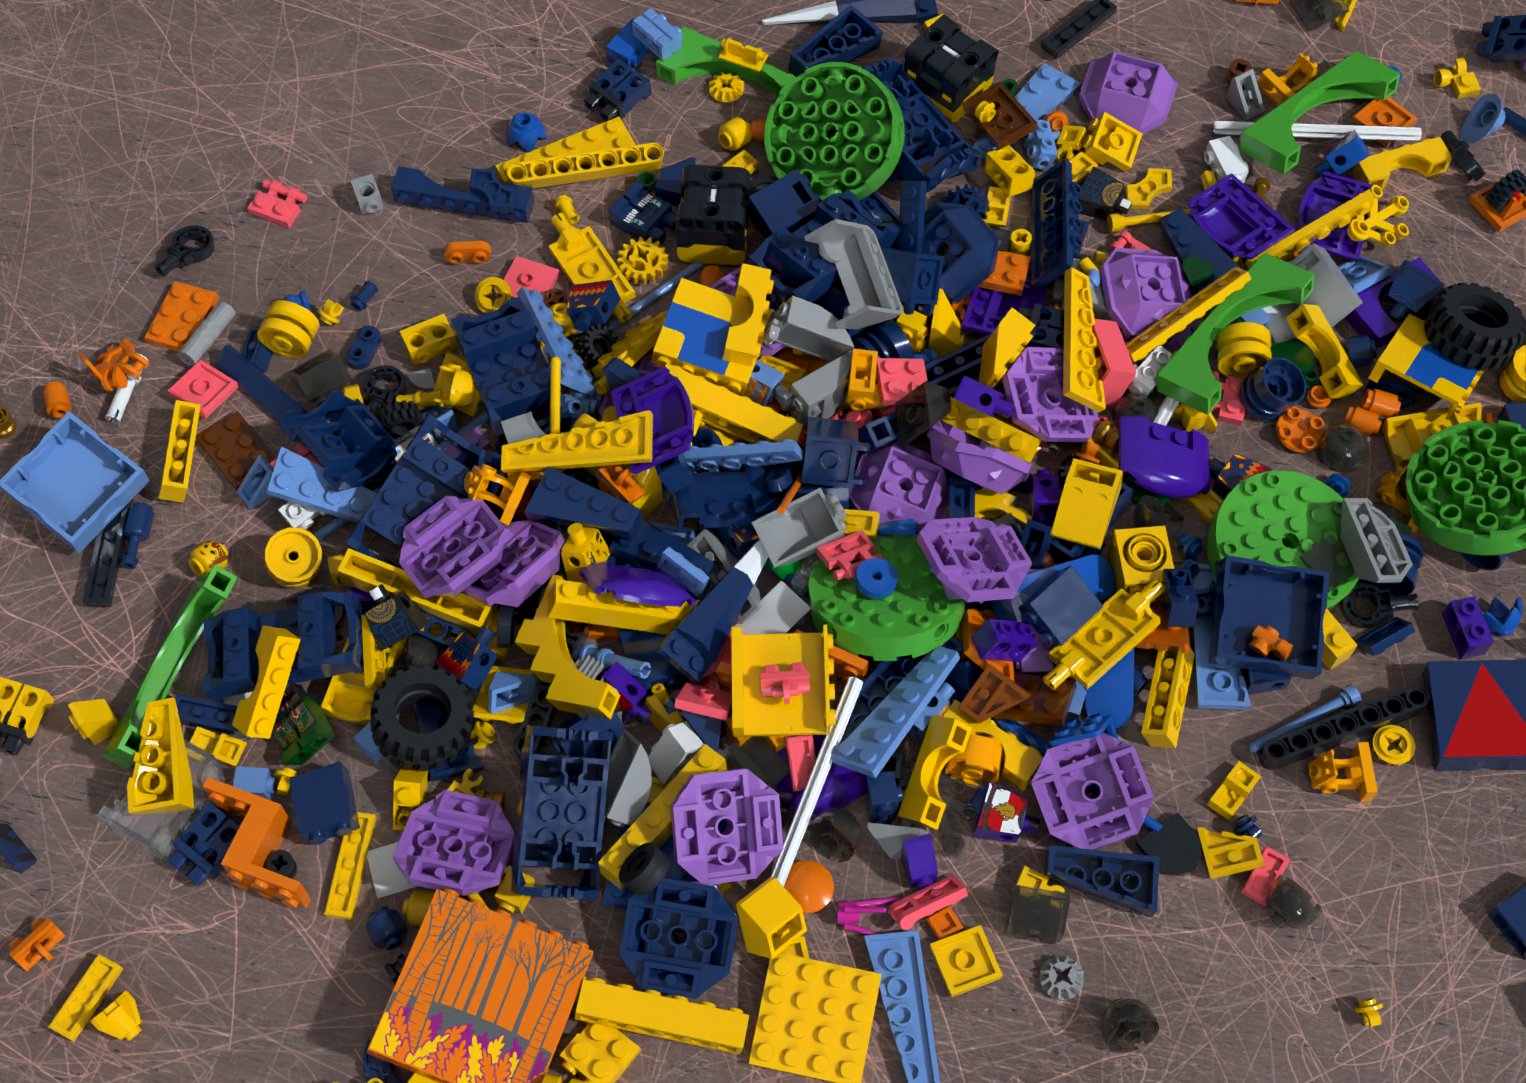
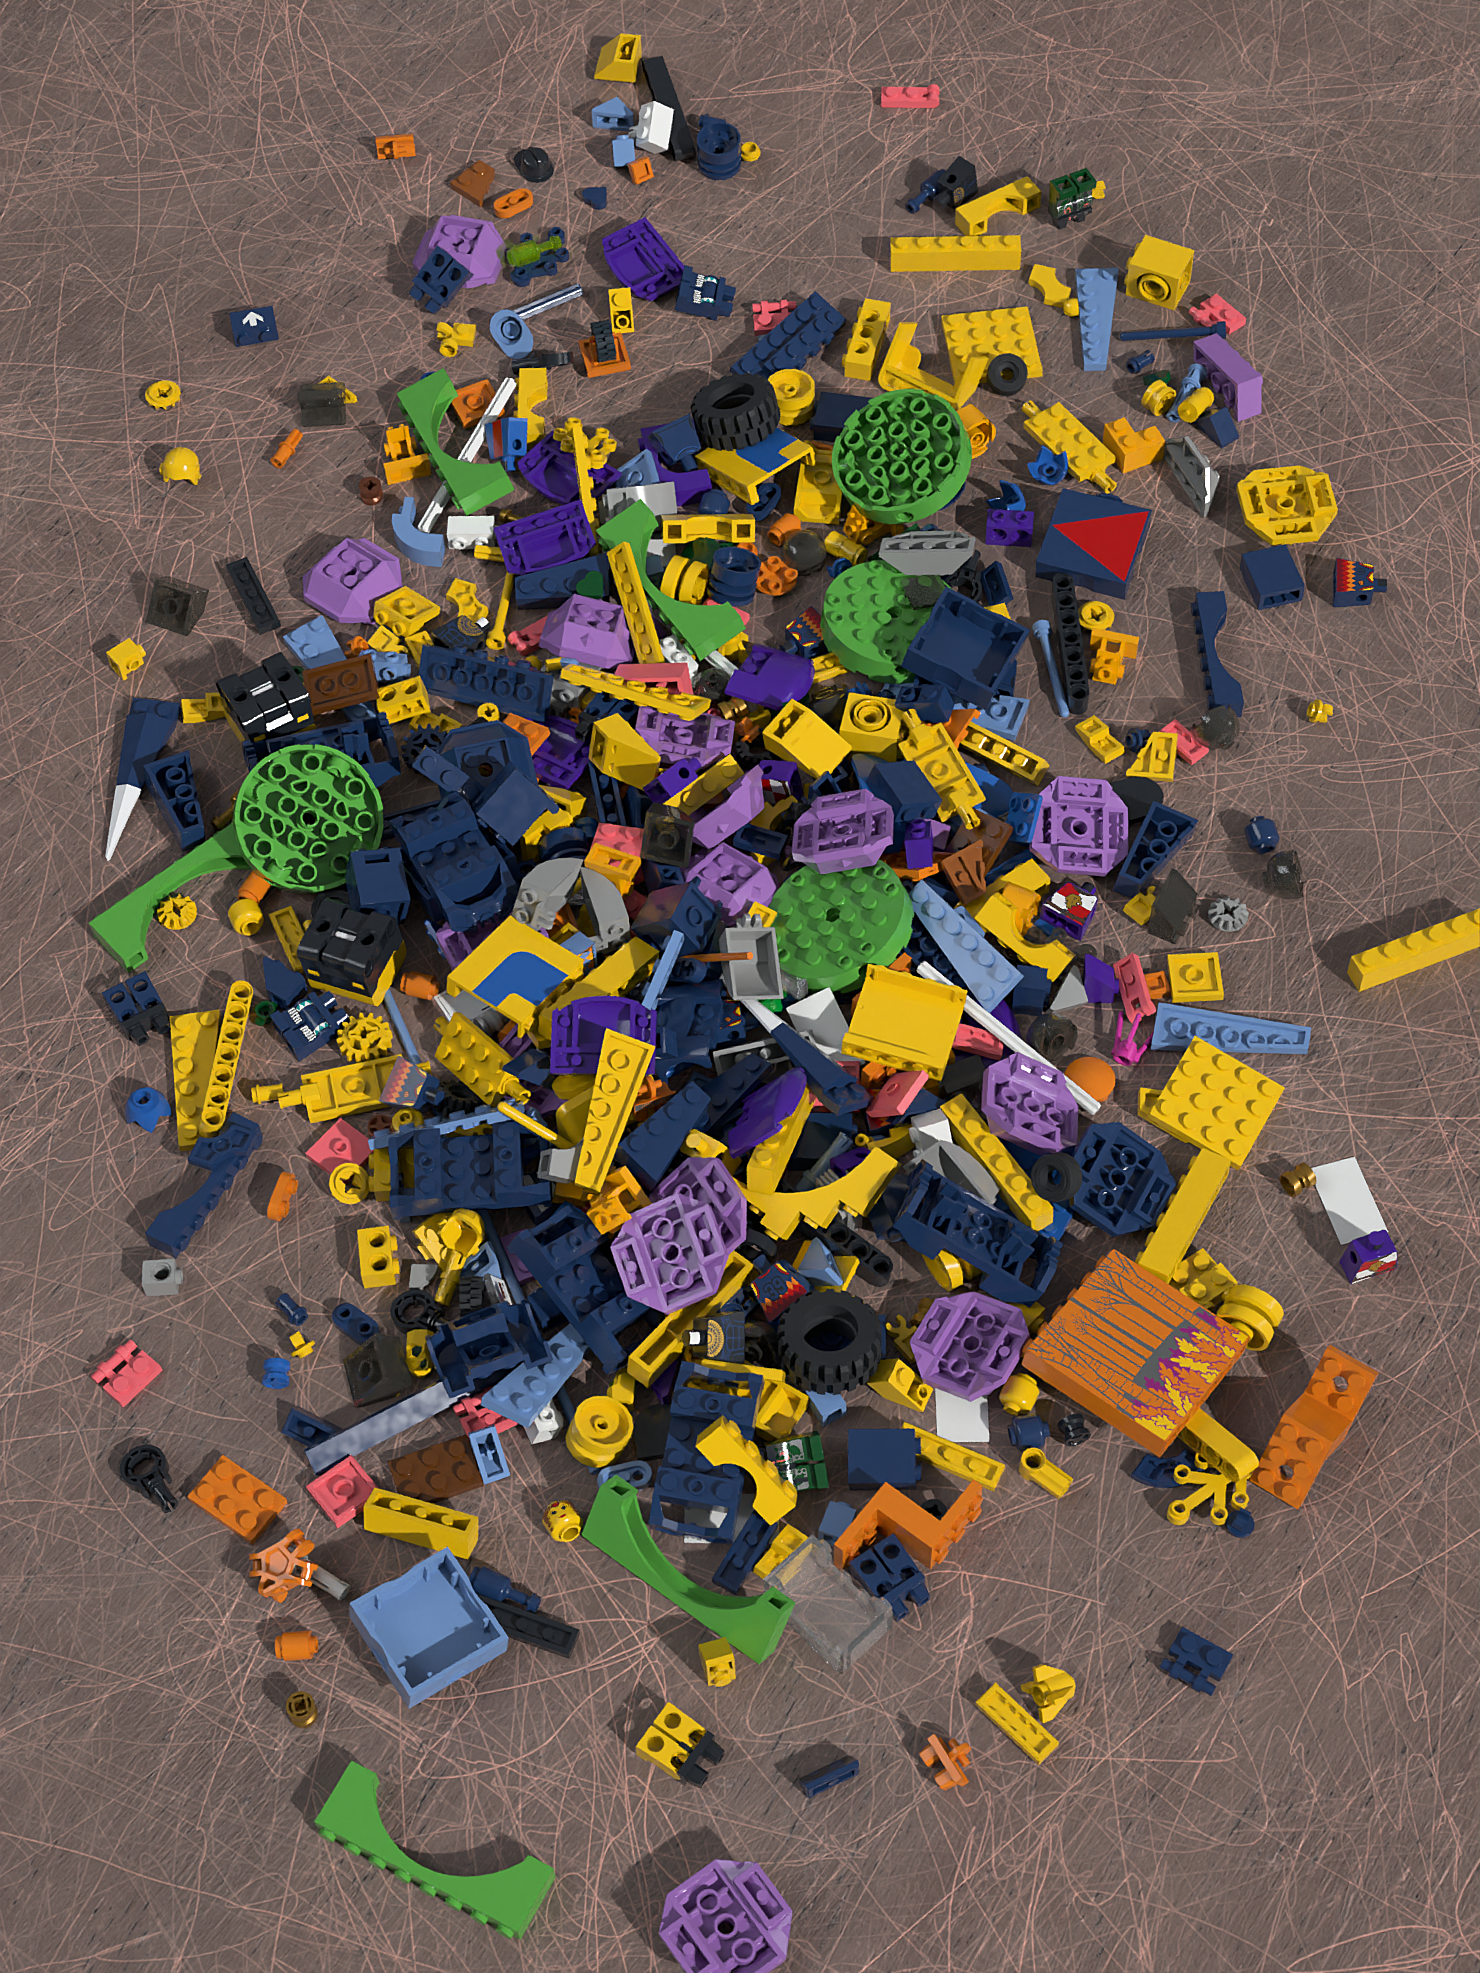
camera: 70 degrees left, 5 degrees down
(162, 768) = (810, 1584): yellow wedge -> none
(206, 333) = (275, 1473): light grey axle -> none
(264, 597) = (627, 1472): none -> medium blue plate
(284, 784) = (844, 1493): yellow plate -> none
(288, 329) = (313, 1382): yellow wheel -> none
(346, 958) = (1046, 1475): none -> yellow piece
(626, 47) = (82, 981): blue brick -> none
(657, 33) = (95, 944): medium blue brick -> none
(683, 572) = (760, 1073): medium blue plate -> none
(742, 339) = (487, 919): yellow arch -> none
(744, 56) = (160, 876): yellow hinge -> none
(770, 919) = (1123, 1103): yellow slope -> none
(786, 682) = (914, 1017): coral hips -> none
(845, 550) = (788, 937): coral plate -> none
(861, 270) = (515, 829): light grey windscreen -> none
(876, 568) = (832, 923): blue piece -> none
(901, 527) = (775, 888): blue arm -> none
(985, 111) = (336, 690): yellow plate -> none
(1174, 987) = (1261, 835): none -> dark blue head
(1206, 110) = (416, 545): none -> medium blue arch
(1245, 95) = (398, 489): light grey slope -> none
(1267, 640) = (987, 657): orange plate -> none
(1364, 479) = (843, 547): none -> yellow piece
(1381, 402) = (775, 507): orange brick -> none
(1448, 863) = (1210, 615): none -> dark blue arch

